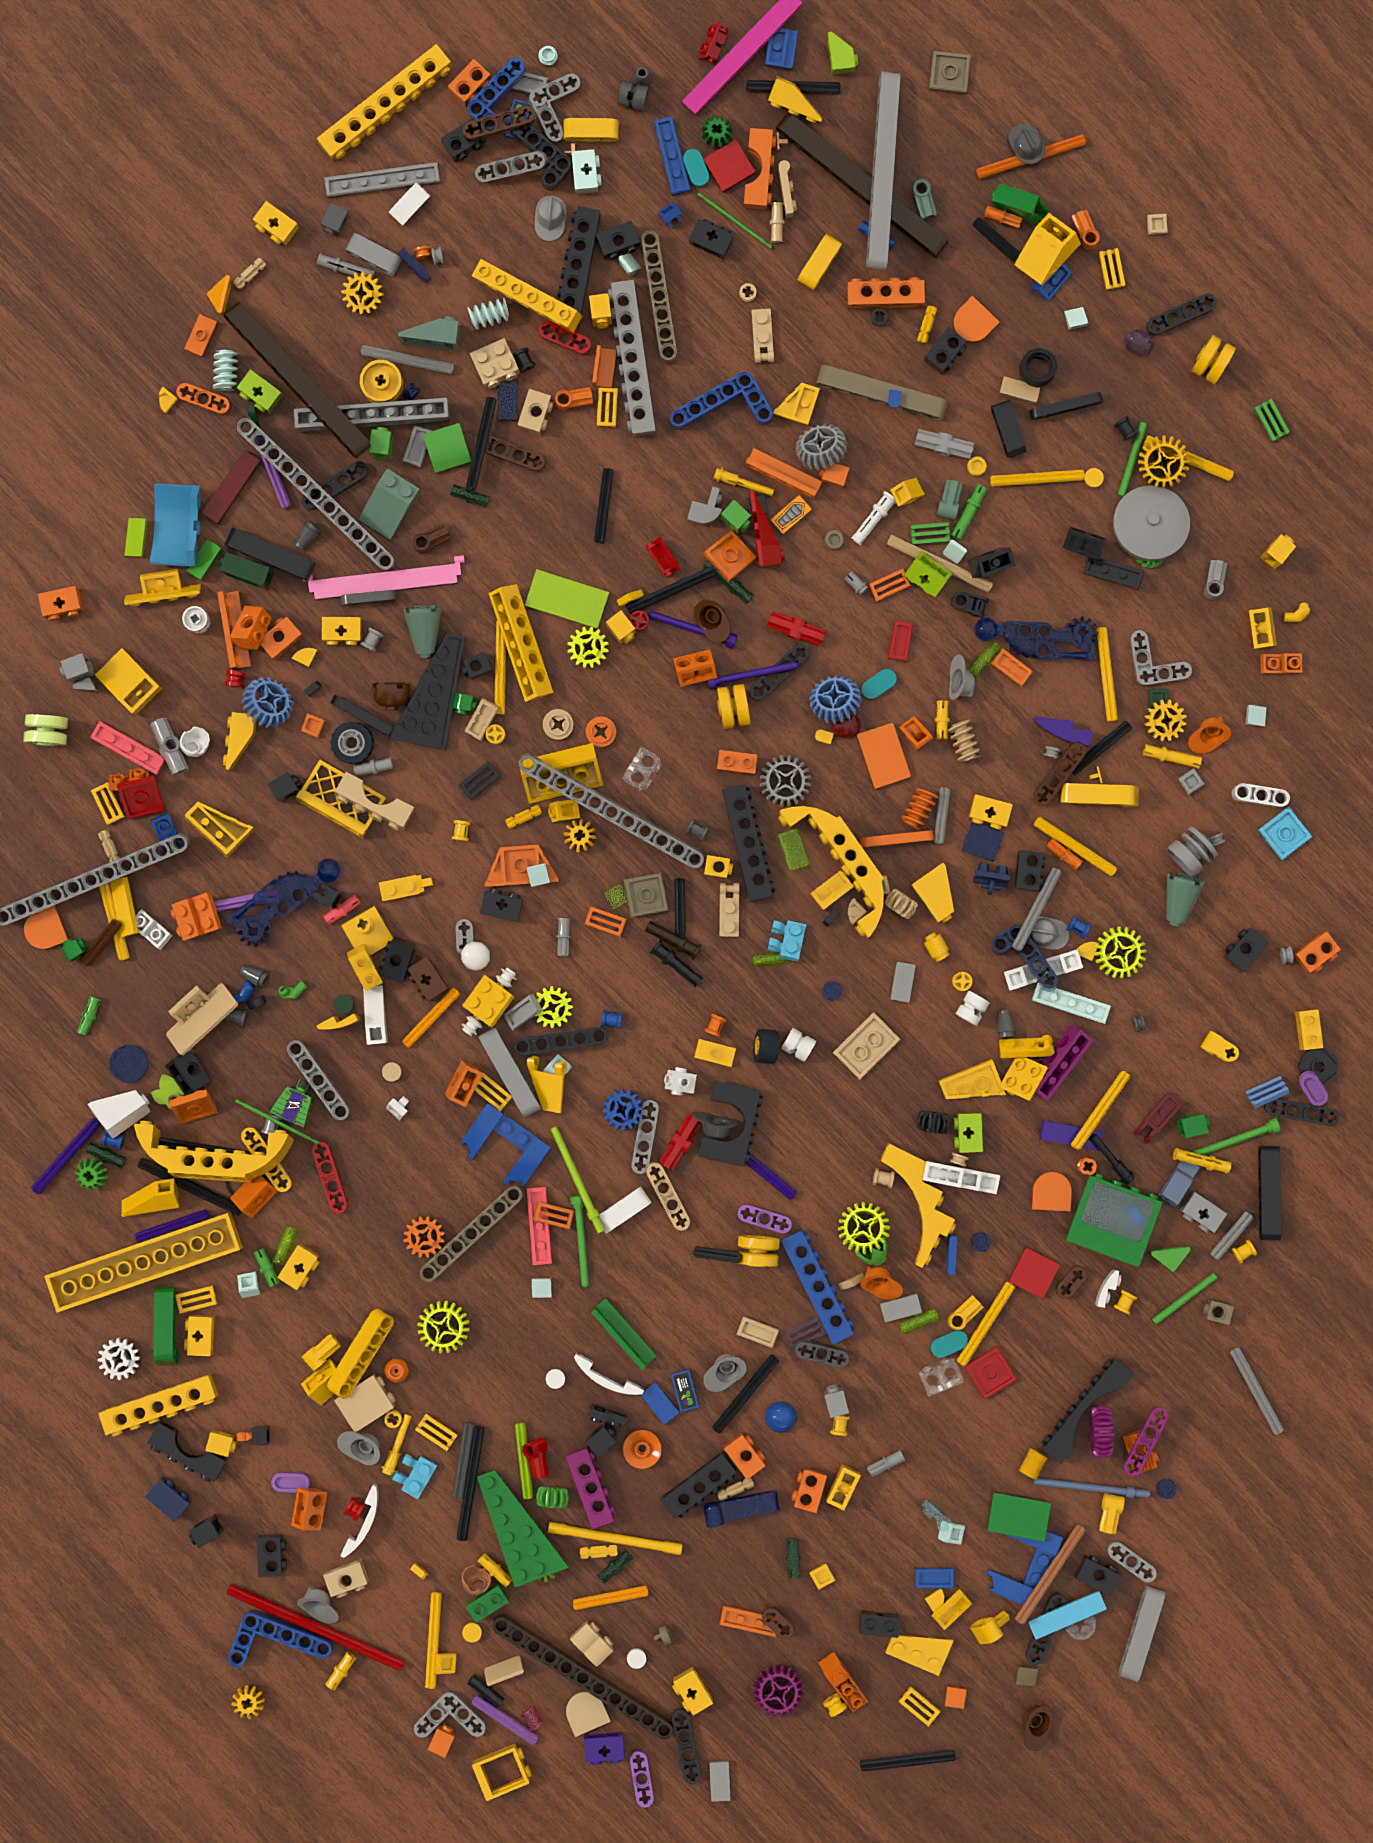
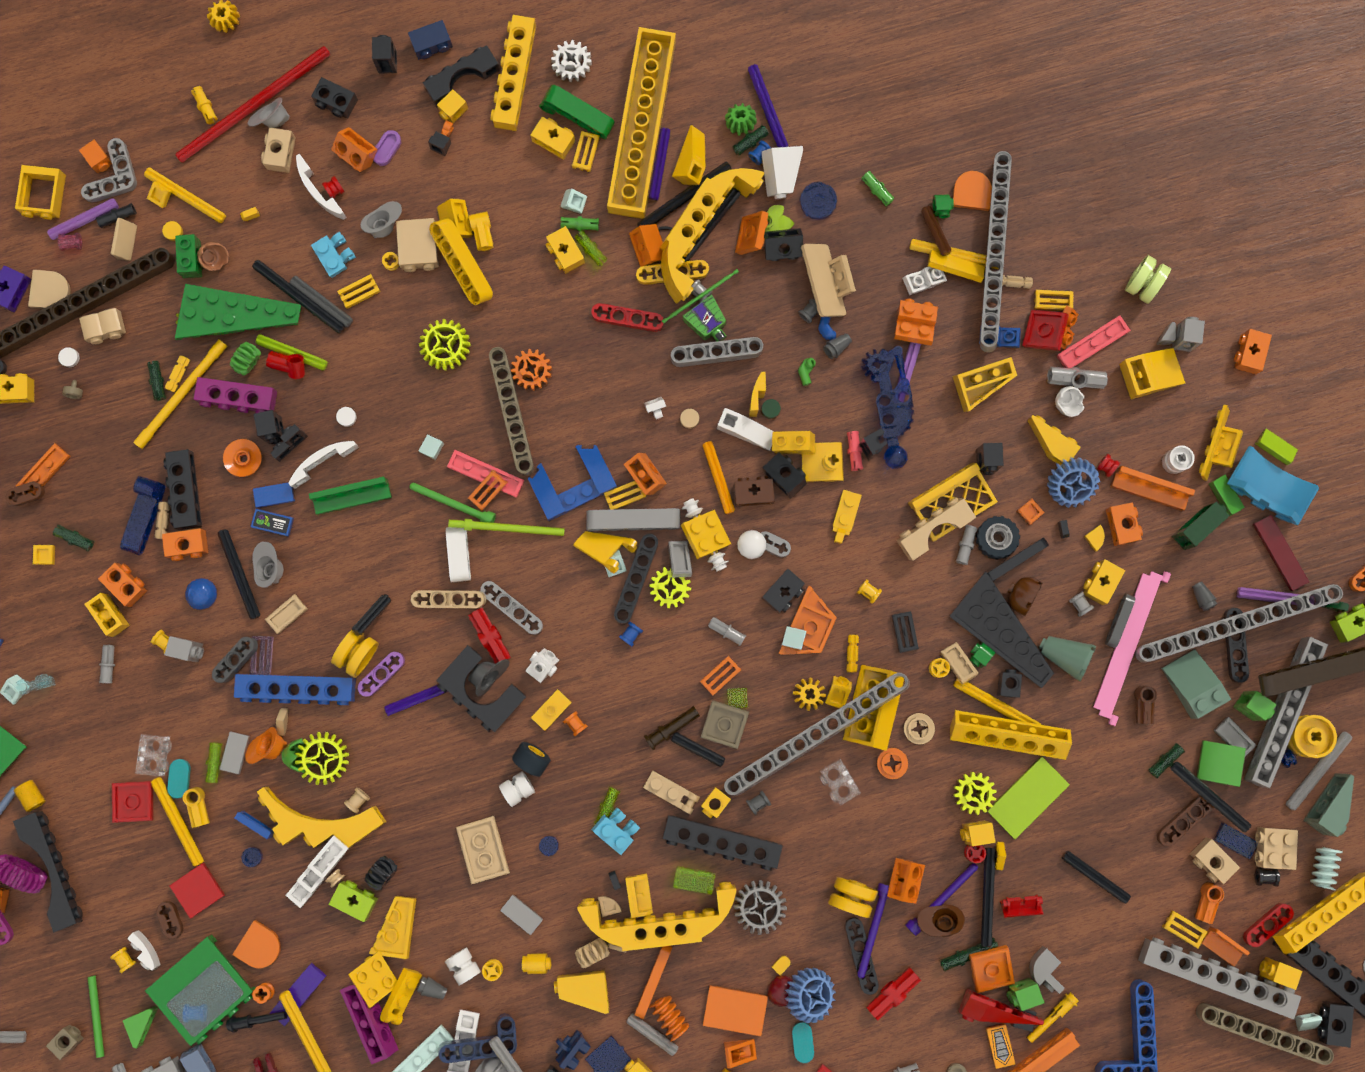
camera: 115 degrees right, 5 degrees down
(250, 627) = (1147, 502): orange brick -> none
(256, 1002) = (813, 334): black tile -> none
(270, 554) = (1204, 555): black beam -> none
(276, 1635) = (264, 68): blue beam -> none
(393, 1456) = (360, 246): yellow pin -> none
(402, 1372) = (432, 291): orange plate -> none
(495, 1570) = (213, 277): yellow pin -> none
(611, 1597) = (132, 363): light orange axle -> none
(627, 1116) = (538, 601): blue gear -> none
(668, 957) = (657, 715): black pin -> none
(737, 762) = (800, 872): orange brick -> none

